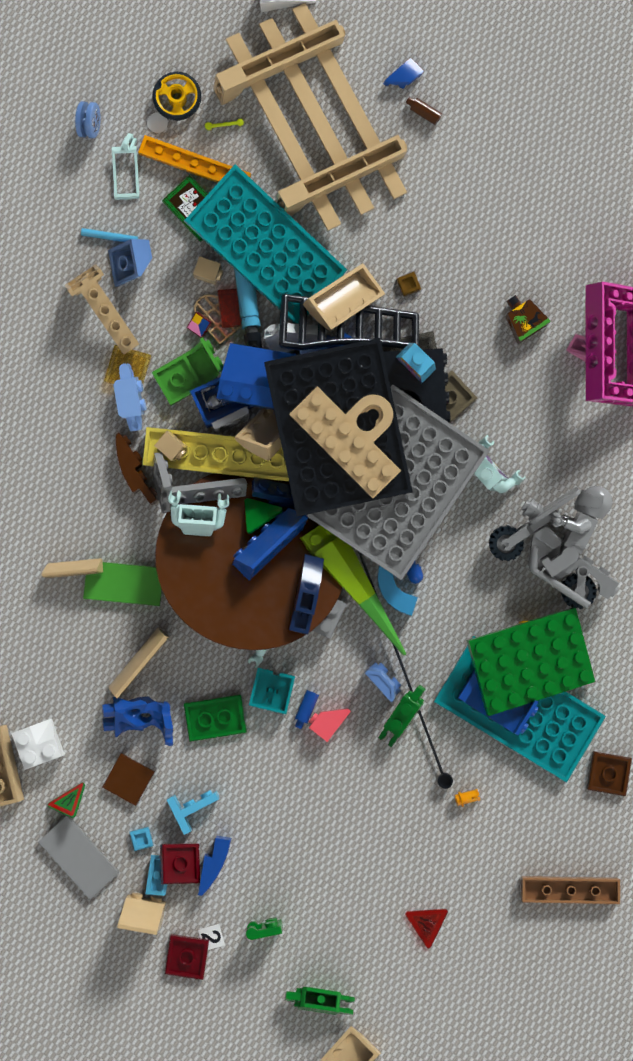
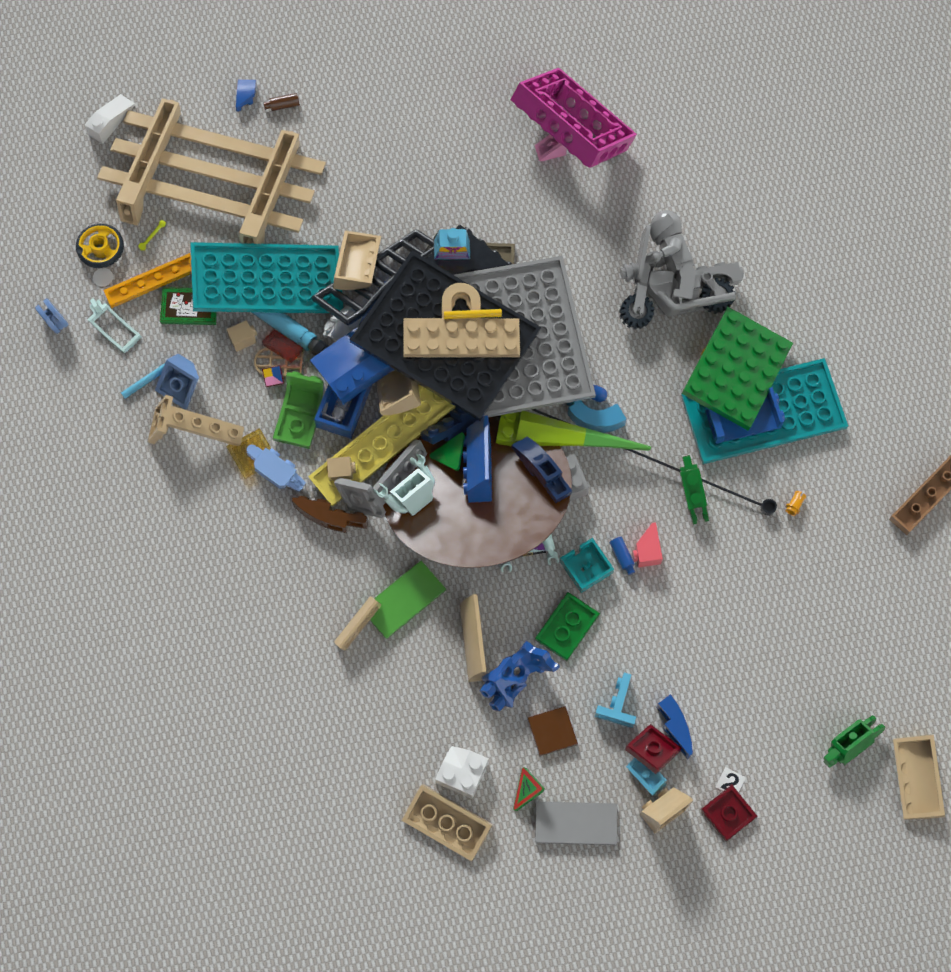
camera: 45 degrees left, 15 degrees down
(141, 838) = (606, 763): medium azure tile -> none
(231, 420) = (364, 412): light grey tile -> none
(269, 928) = (762, 727): green plate -> none
(369, 433) = (472, 314): none -> yellow bar
(385, 684) = (655, 483): medium blue slope -> none
(408, 284) = (389, 217): pearl gold tile -> none
(427, 923) = (864, 616): clear red piece -> none
(493, 476) = (583, 279): light aqua torso -> none
(525, 319) = (491, 165): reddish brown torso -> none
(609, 773) = (868, 394): reddish brown tile -> none

